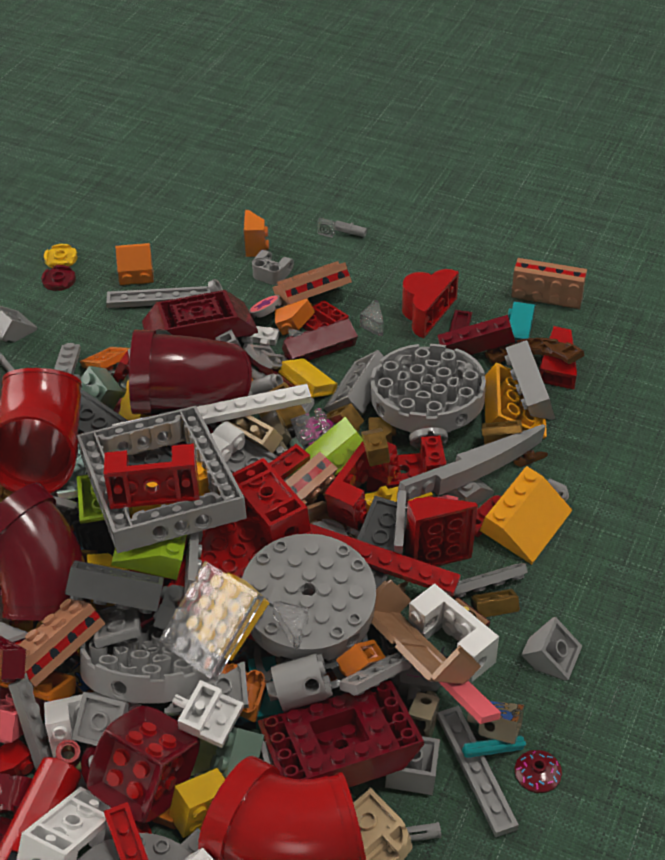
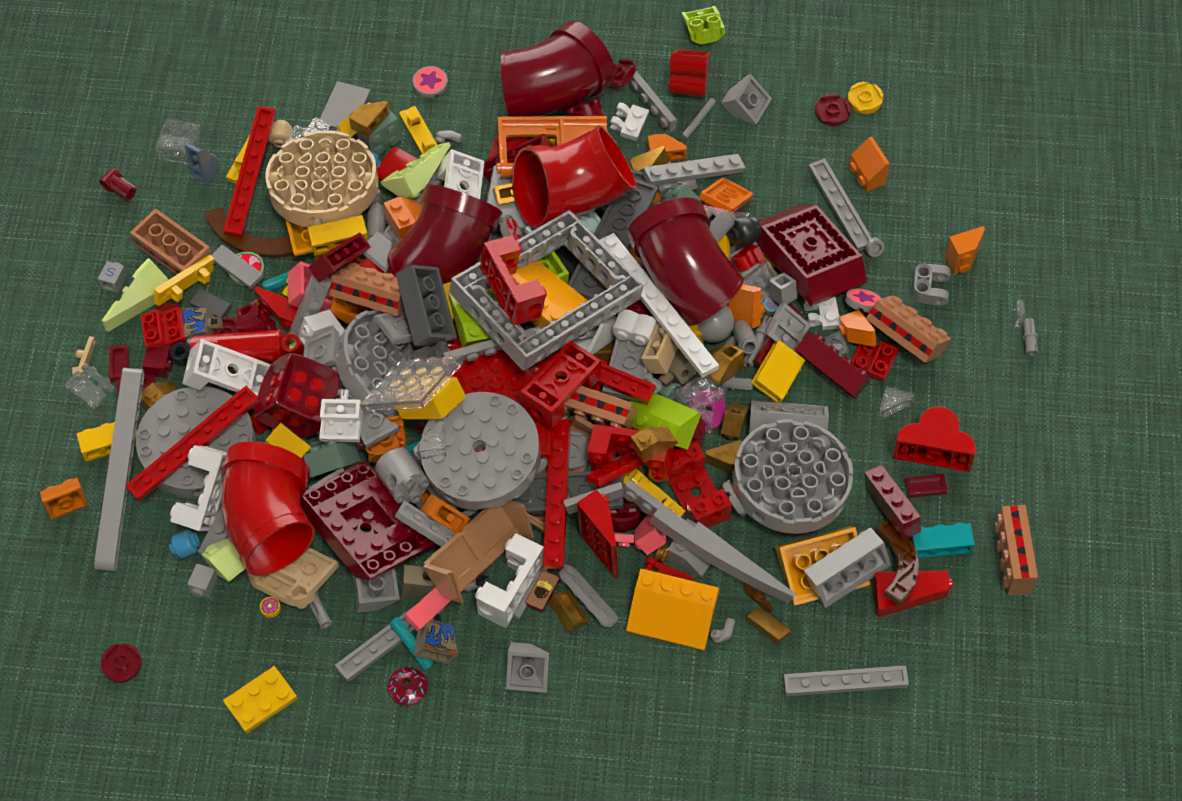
camera: 70 degrees right, 15 degrees up
(376, 498) = (615, 469): none -> red tile
(499, 430) = (770, 557): pearl gold panel -> none
(562, 458) = (768, 625): none -> pearl gold slope
(634, 422) = (846, 680): none -> light grey plate

